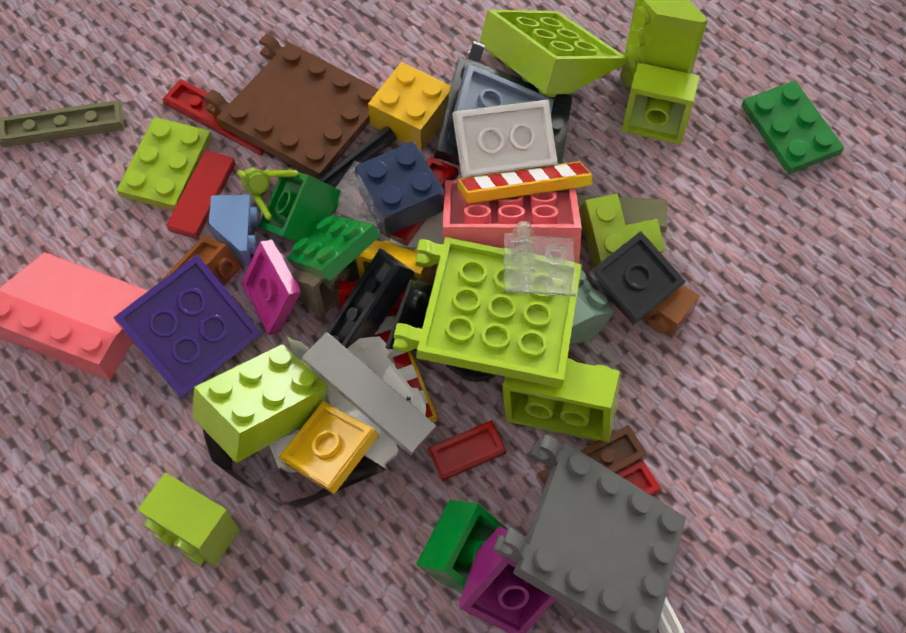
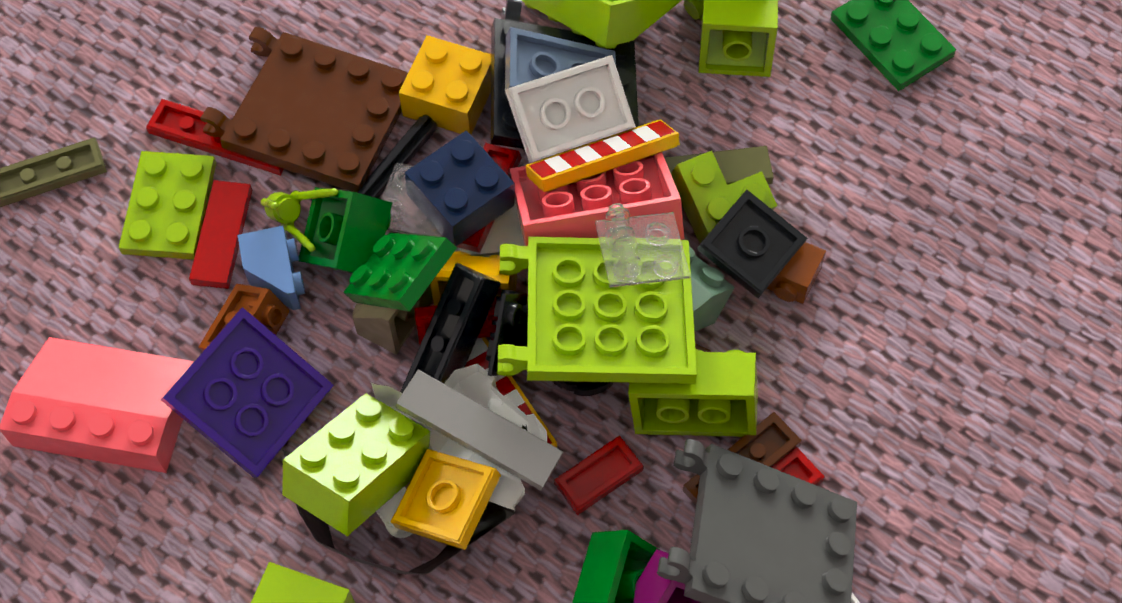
camera: 10 degrees left, 0 degrees up
(270, 287) = (333, 330): dark pink plate -> none

